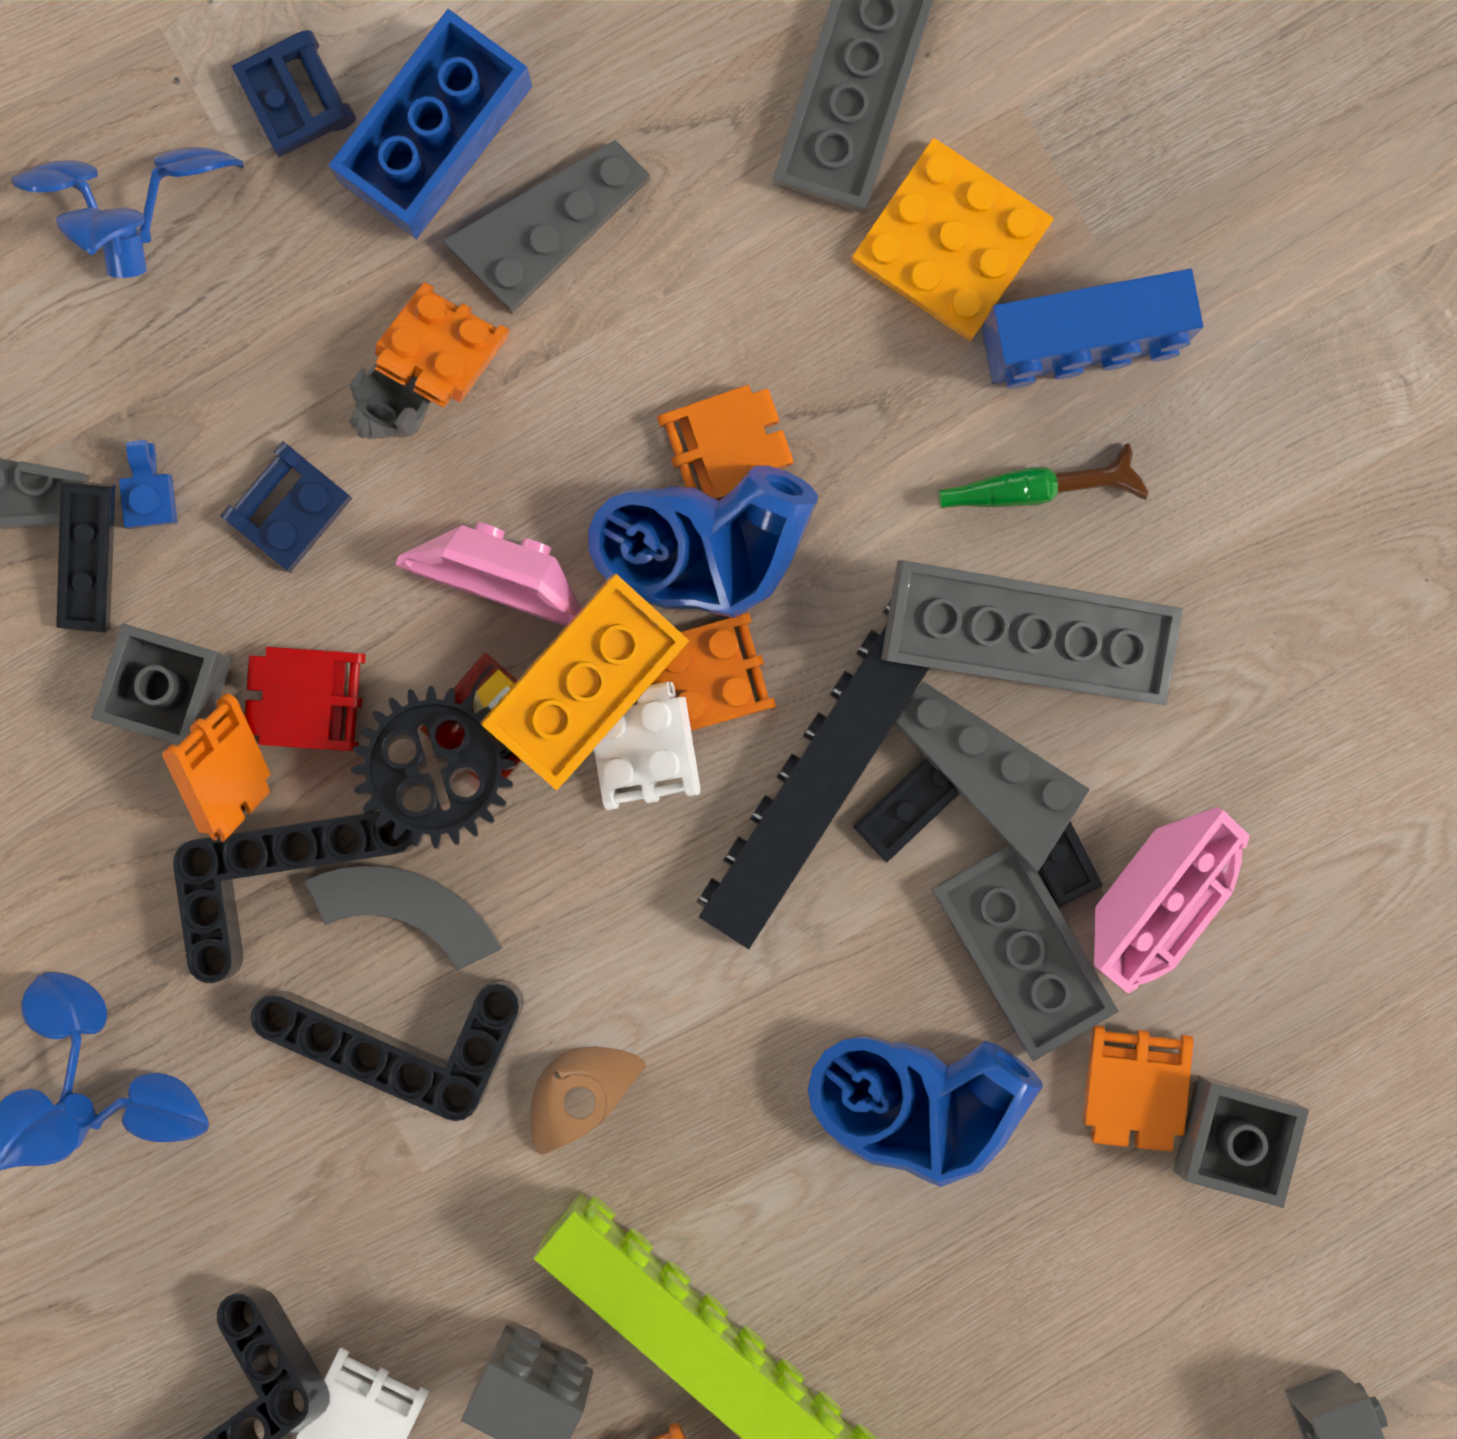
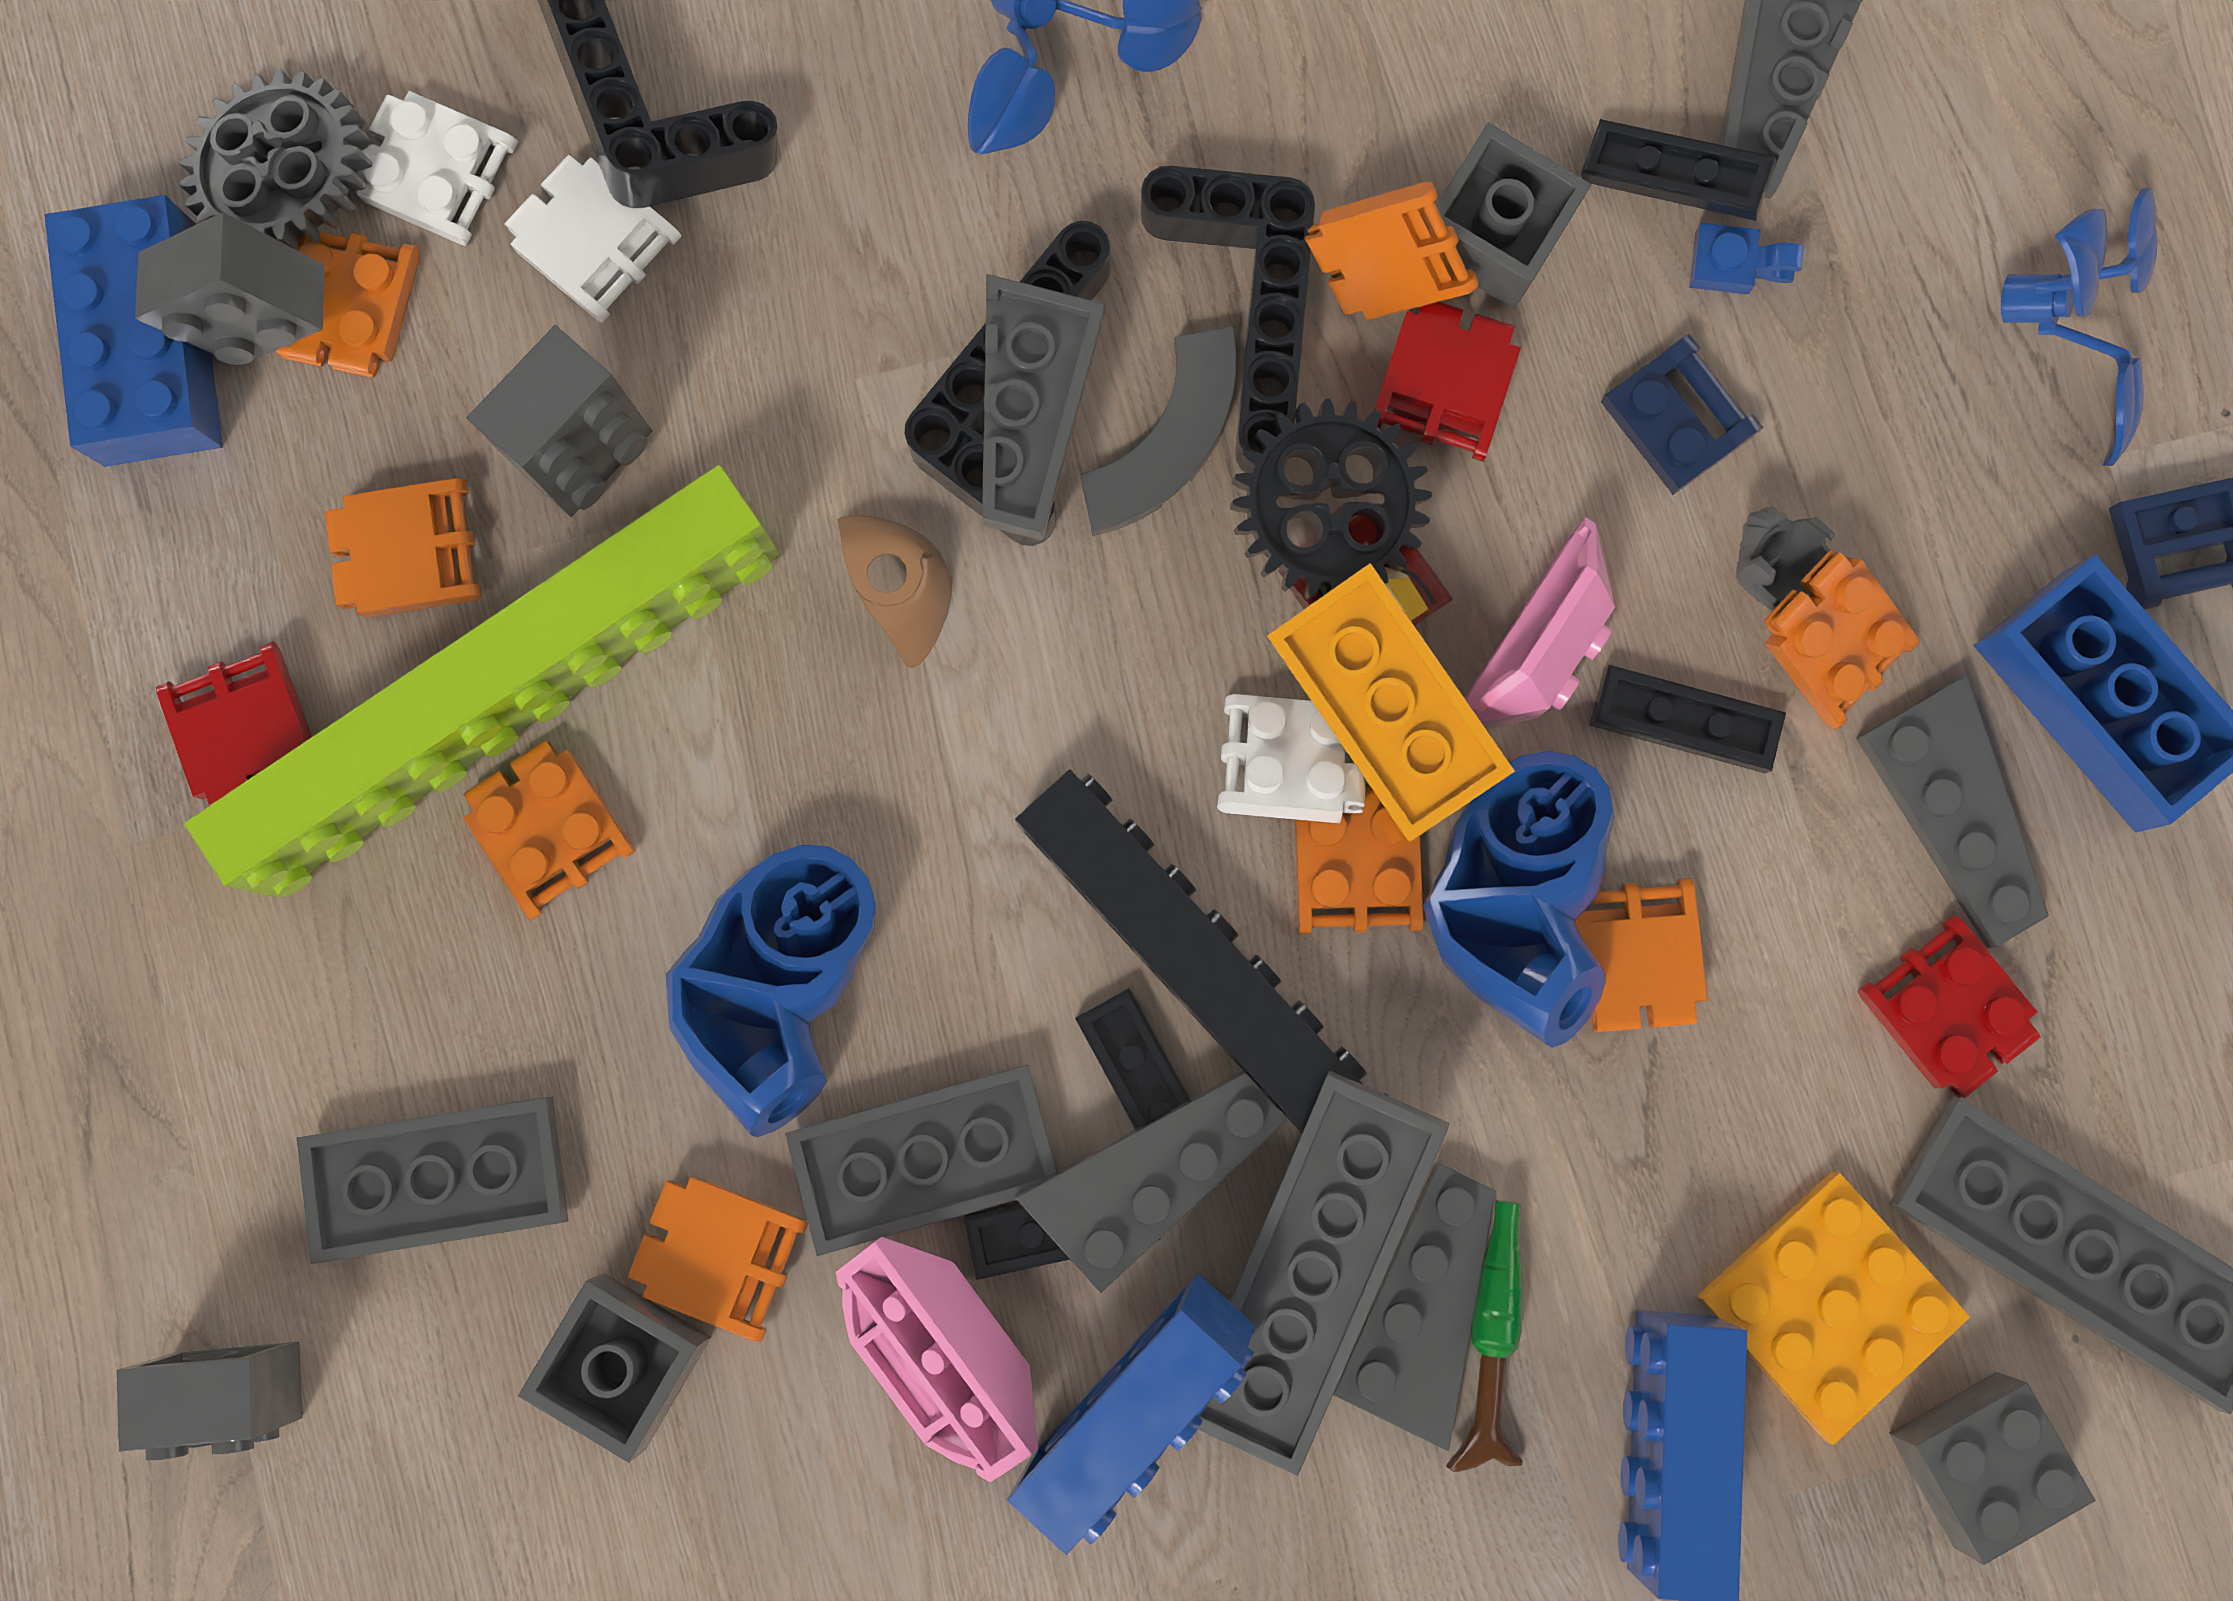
camera: 105 degrees right, 5 degrees down
(404, 1026) = (1034, 383): none -> dark grey wing
(531, 447) = (1688, 719): none -> black tile
(706, 195) = (1954, 1011): none -> red plate
(845, 1318) = (543, 825): none -> orange plate
(1039, 100) = (1992, 1467): none -> dark grey brick
(1043, 544) = (1421, 1320): none -> dark grey wing
(1139, 1323) = (432, 1179): none -> dark grey plate
(1172, 741) = (1133, 1416): none -> blue brick

